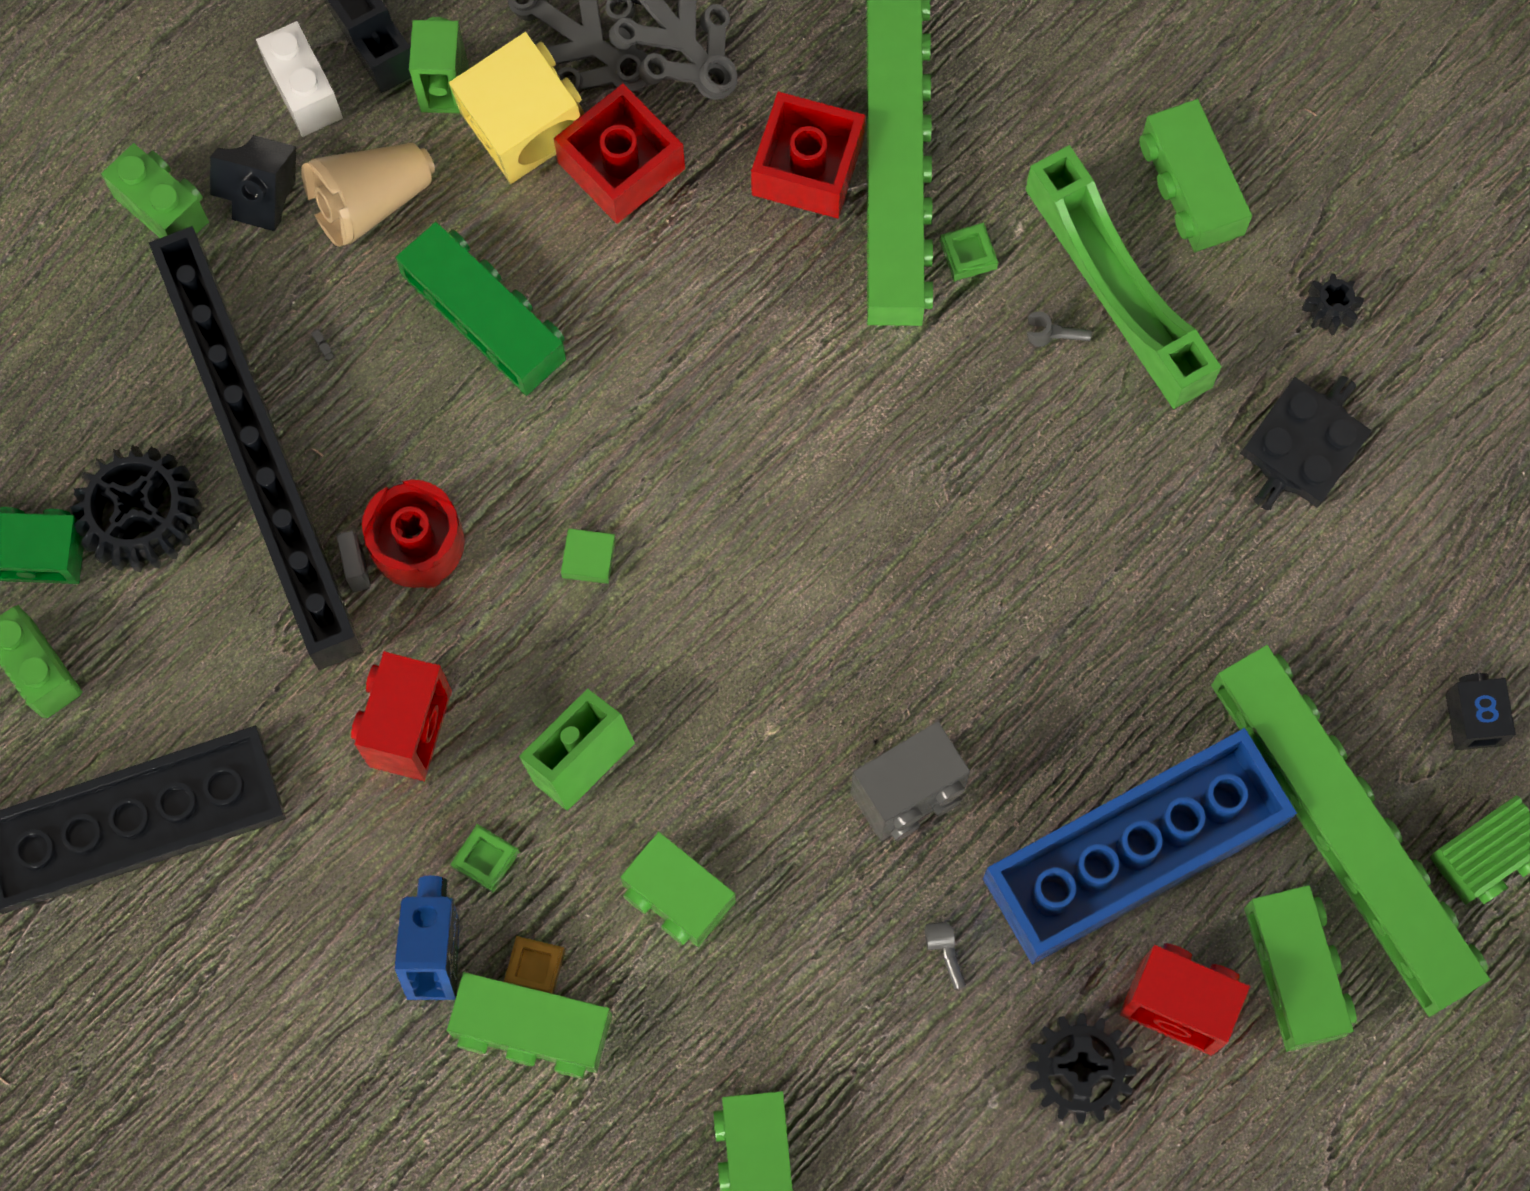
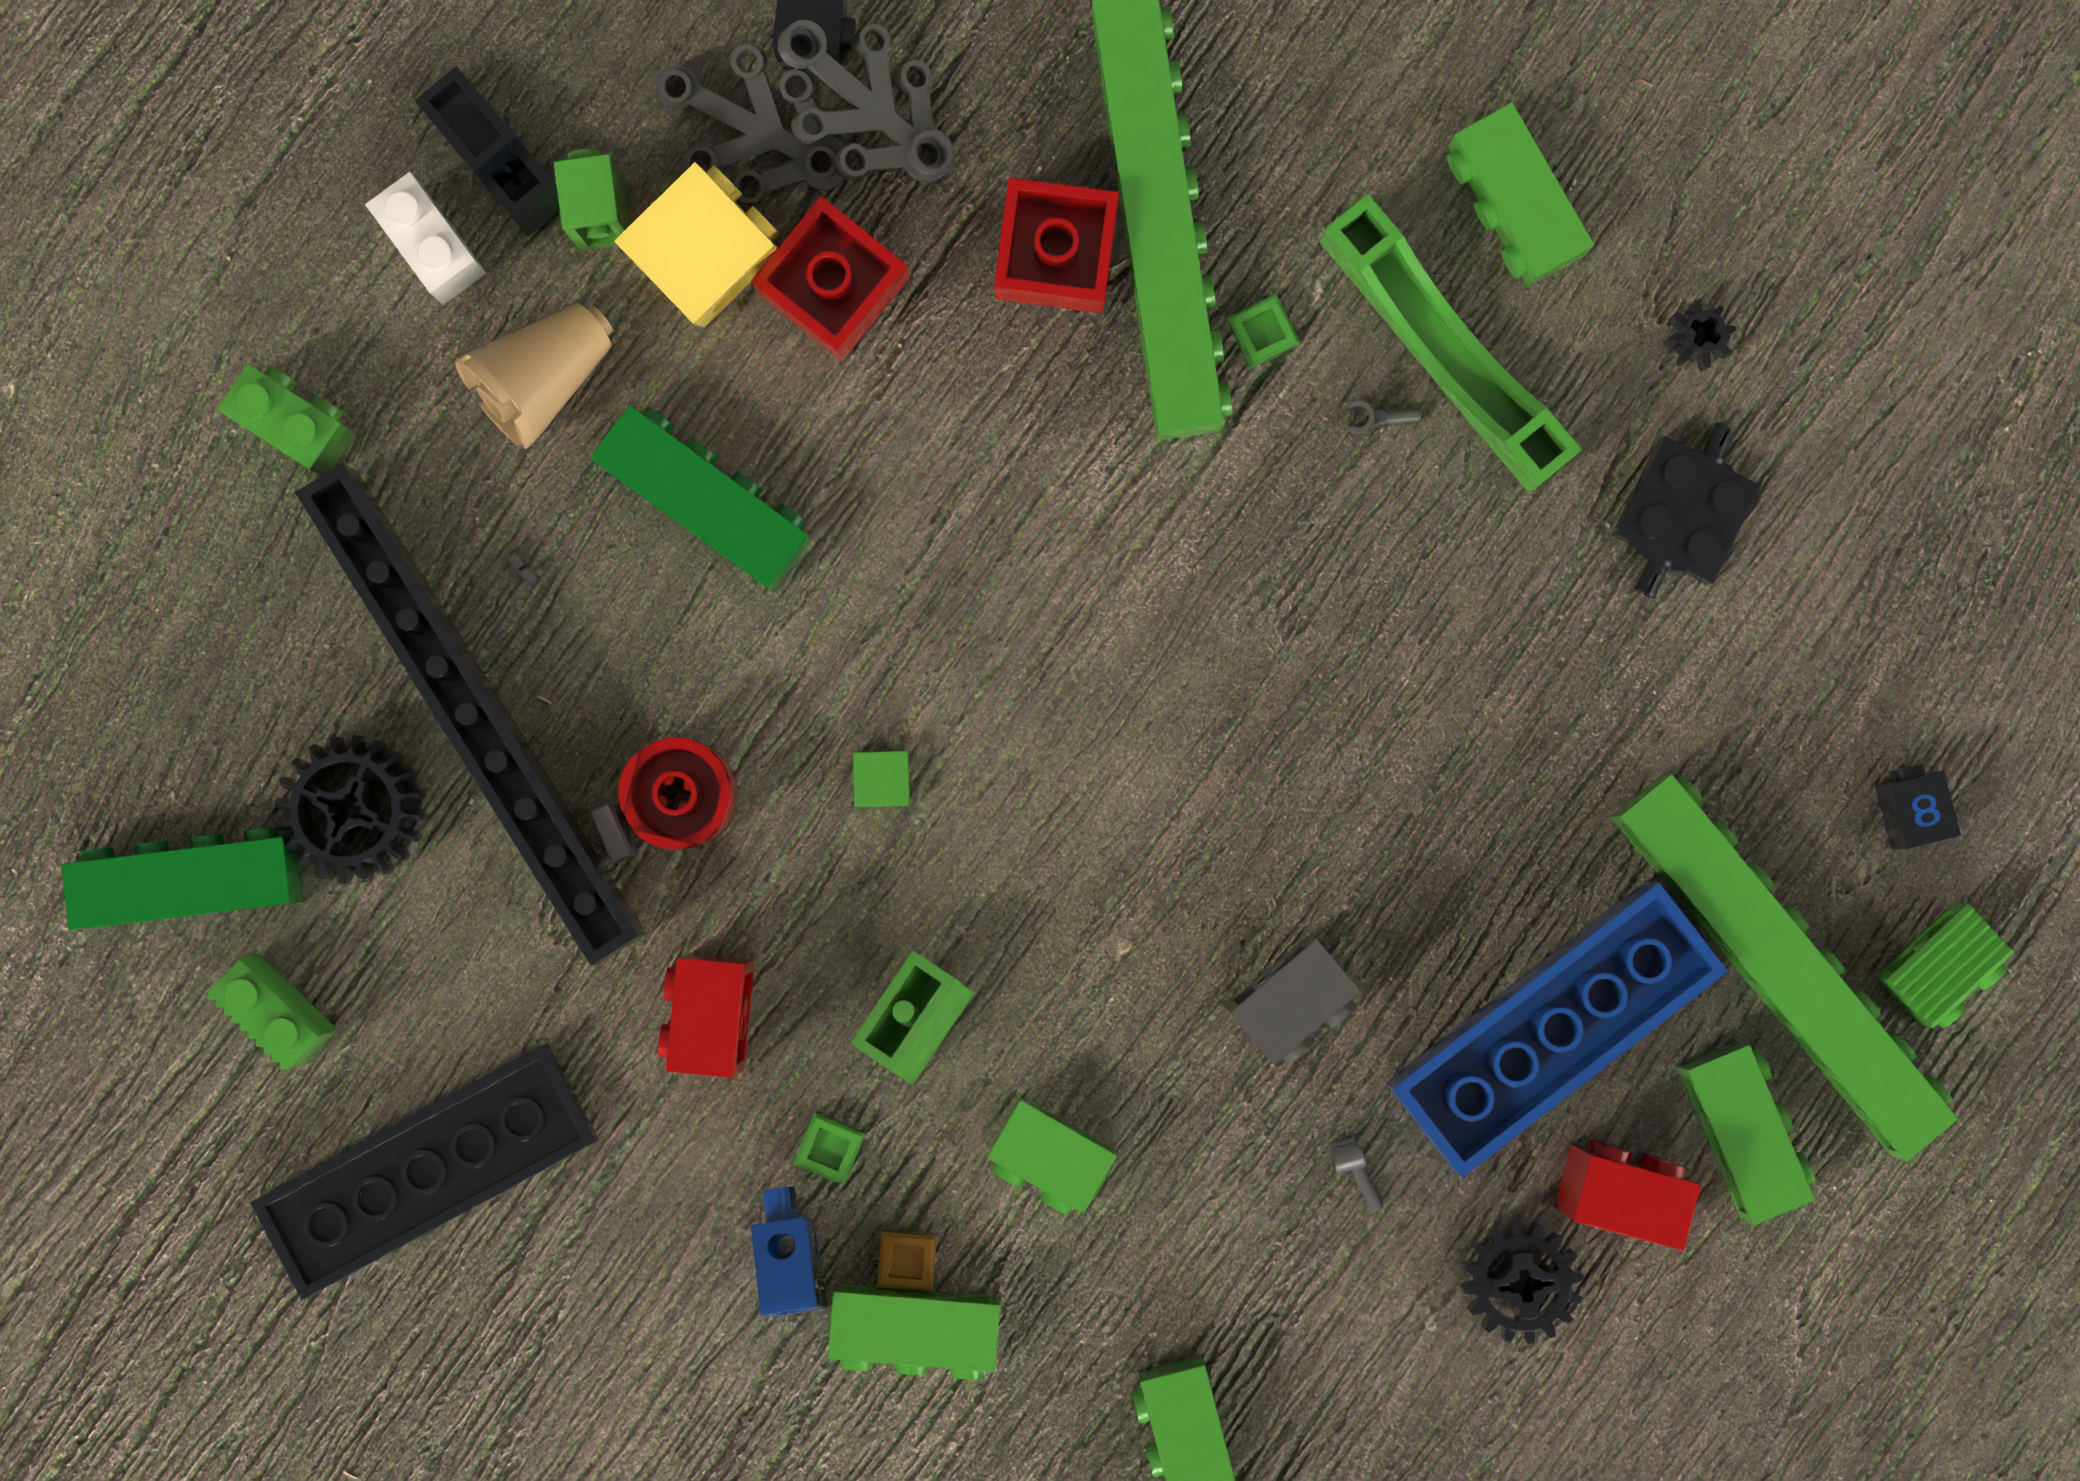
camera: 10 degrees left, 15 degrees up
(255, 180) = (401, 379): black brick -> none

